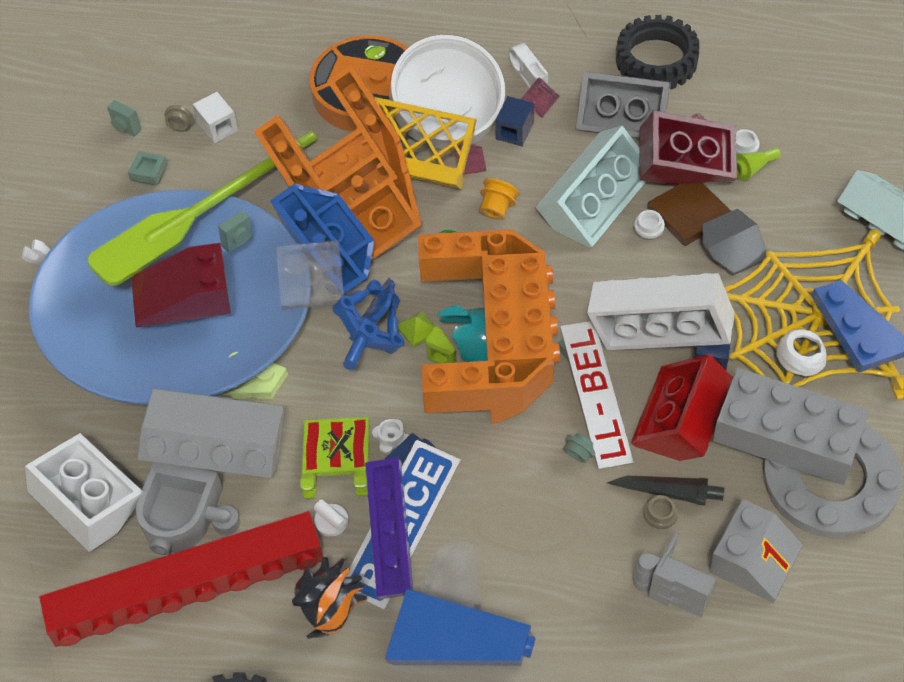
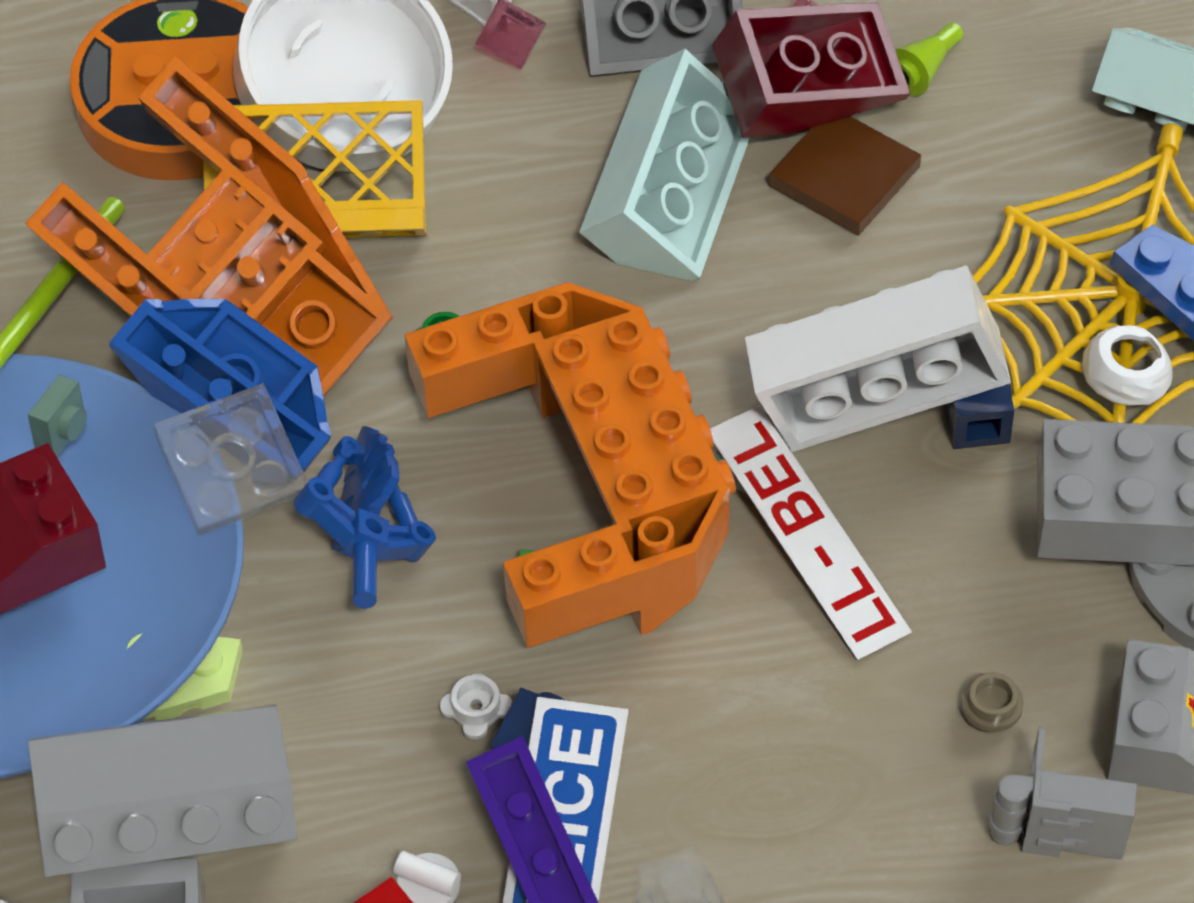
camera: 20 degrees left, 0 degrees up
(334, 449) = (387, 757): flag -> none
(416, 328) = (448, 504): lime slope -> none
(439, 347) = (507, 527): lime slope -> none
(468, 337) = (563, 497): teal helmet -> none
(475, 160) = (438, 178): clear pink slope -> none
(497, 198) = (504, 234): light orange piece -> none
(514, 121) = (480, 87): dark blue brick -> none
(579, 447) = (814, 632): sand green plate -> none
(649, 224) = (785, 213): white plate -> none
(683, 408) = (965, 516): red slope -> none
(685, 489) = (1010, 653): pearl dark grey bar -> none
(734, 241) = (943, 204): dark grey slope -> none
(746, 141) = (902, 24): white plate -> none

